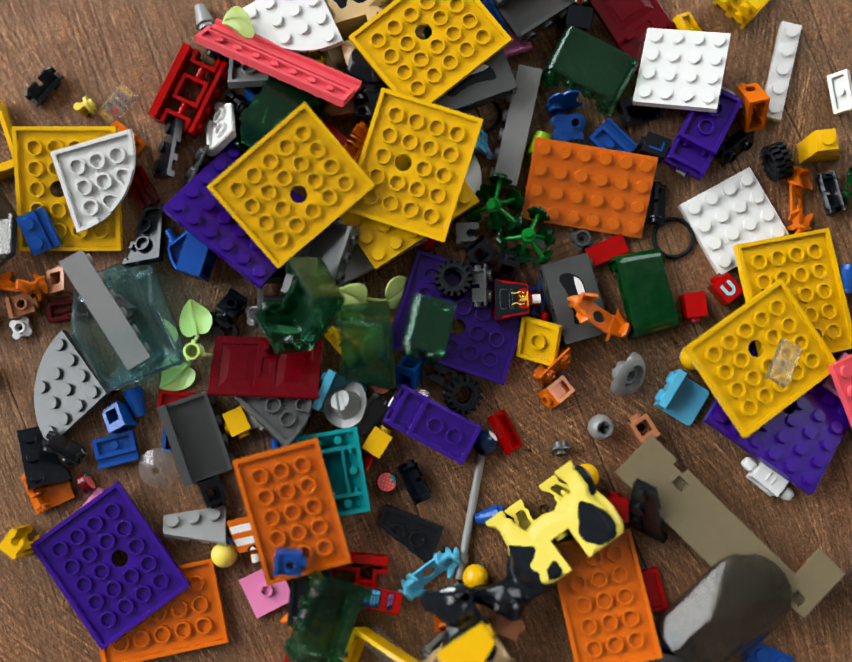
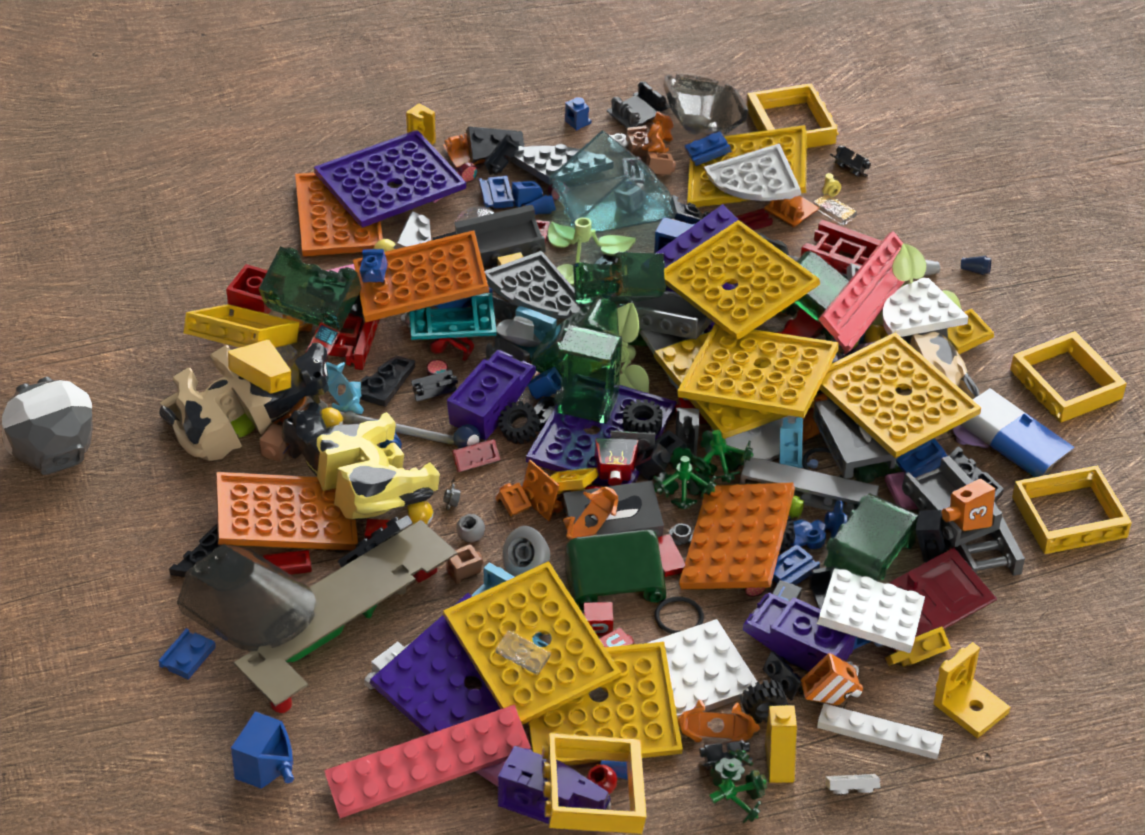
camera: 90 degrees right, 40 degrees down
(105, 309) = (640, 168): light grey brick -> none
(167, 157) = (785, 234): black wing -> none
(253, 370) = (553, 278): dark red door -> none
(378, 441) = (474, 354): yellow brick -> none
(656, 207) = (728, 599): black hinge -> none

